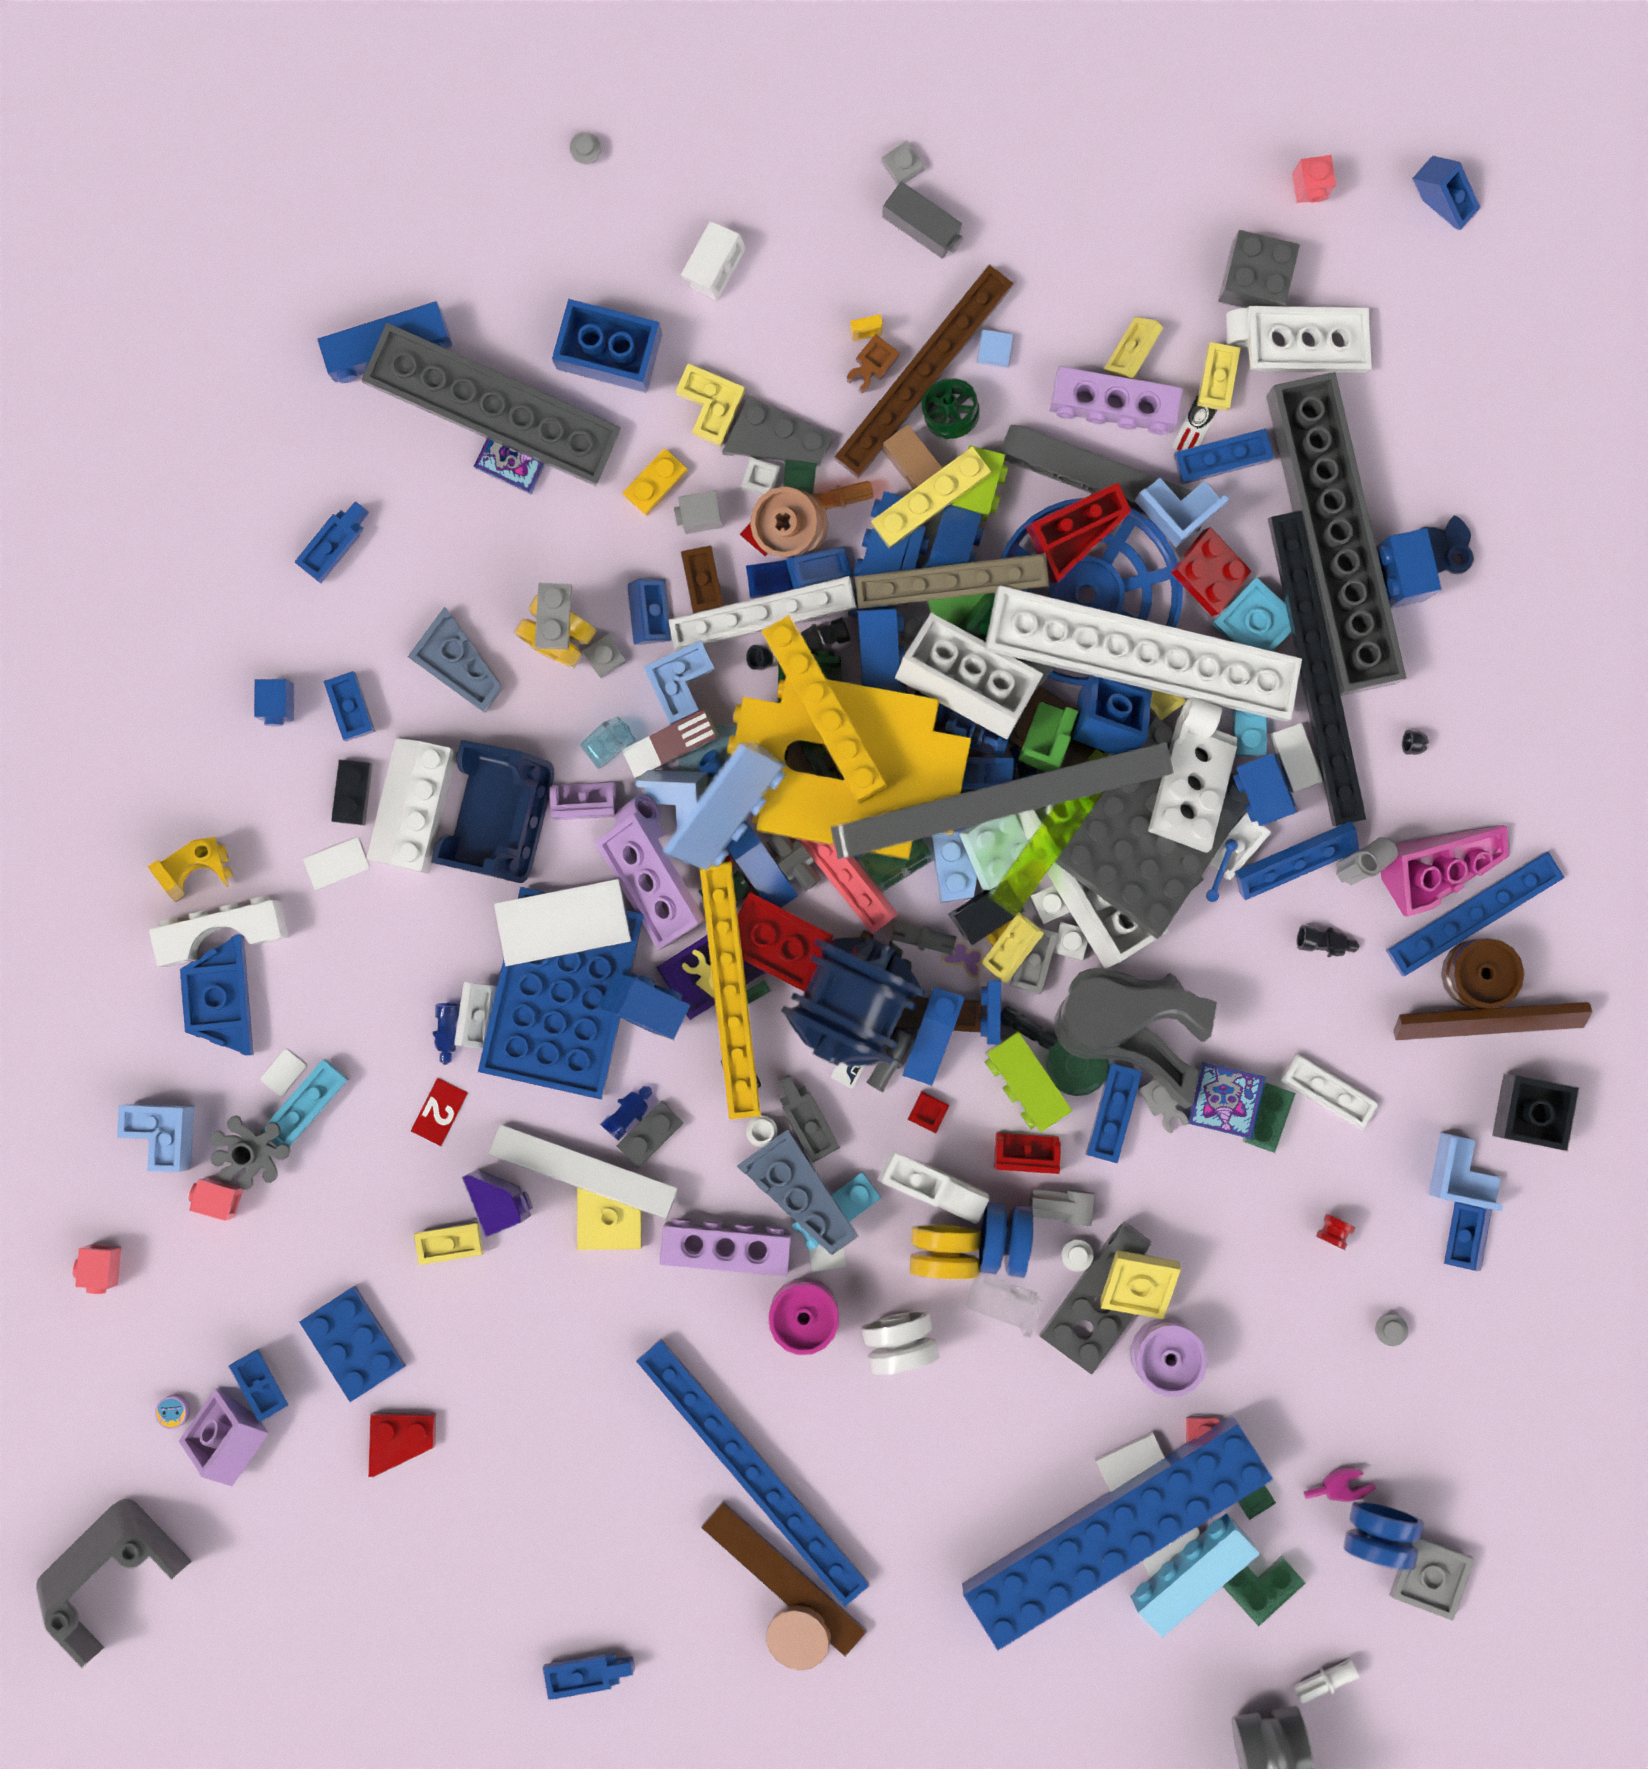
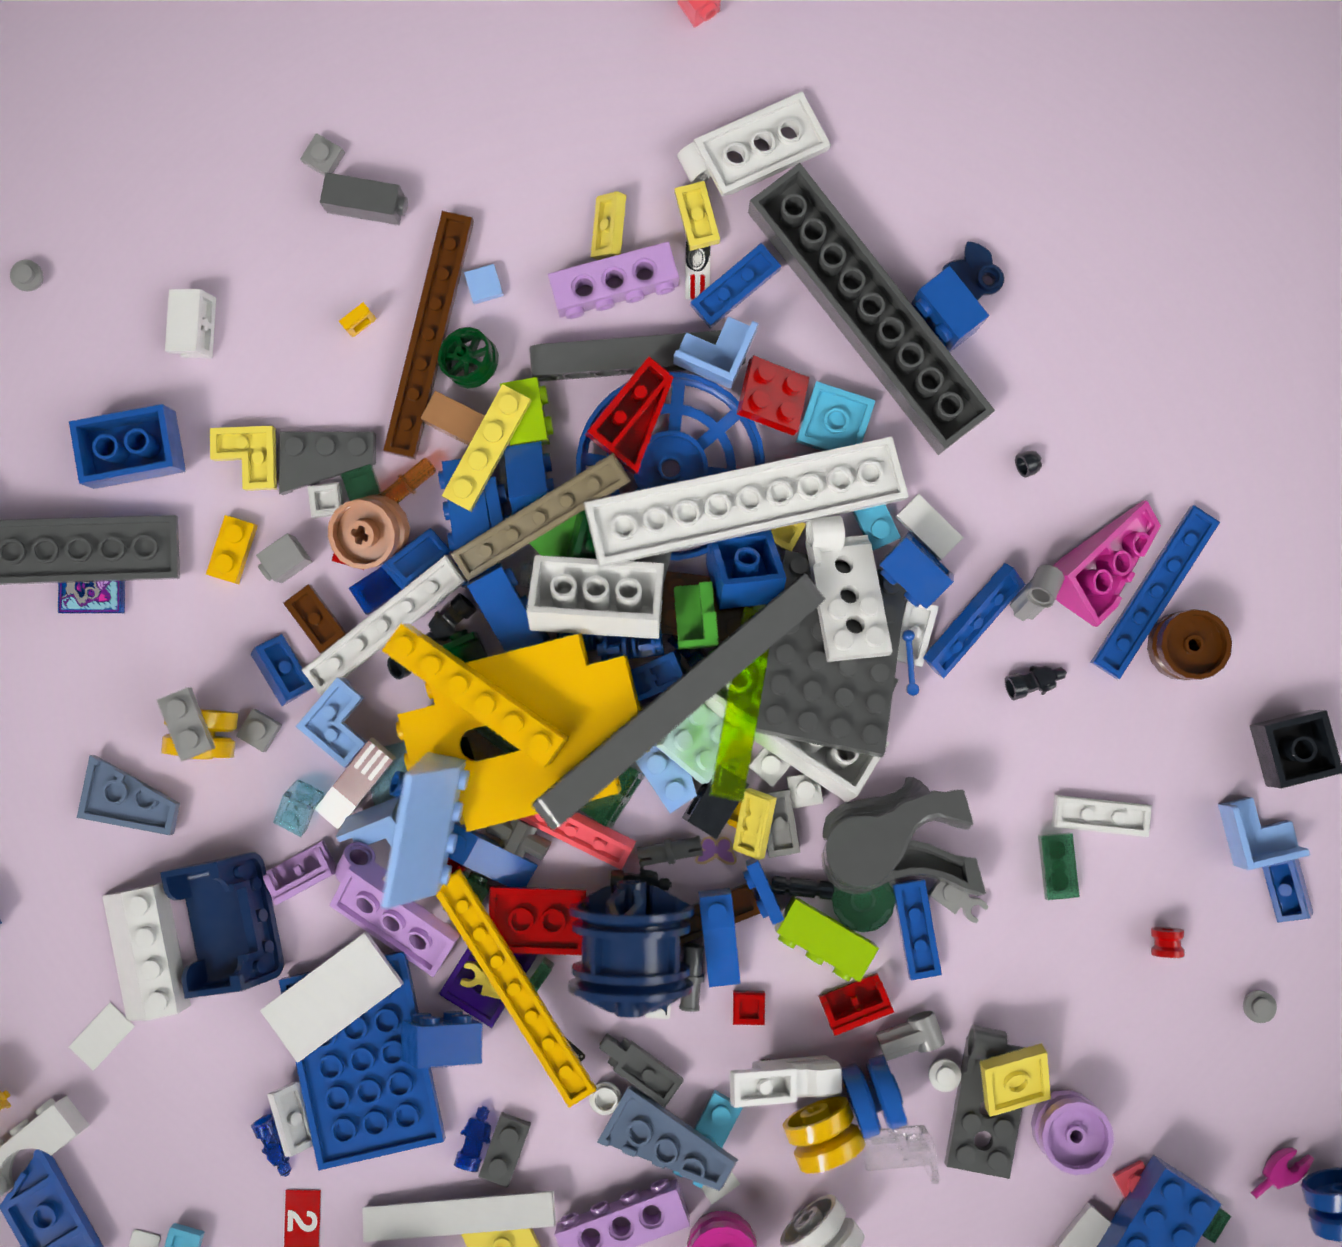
camera: 25 degrees left, 0 degrees up
(349, 706) = (45, 887): blue plate -> none
(351, 792) = (85, 965): black plate -> none
(874, 360) = (380, 345): dark orange plate -> none
(1227, 1100) = (1014, 869): tile -> none
(1258, 271) = (688, 103): dark grey brick -> none
(1316, 668) = (909, 438): black plate -> none
(1492, 1021) = (1224, 680): reddish brown tile -> none

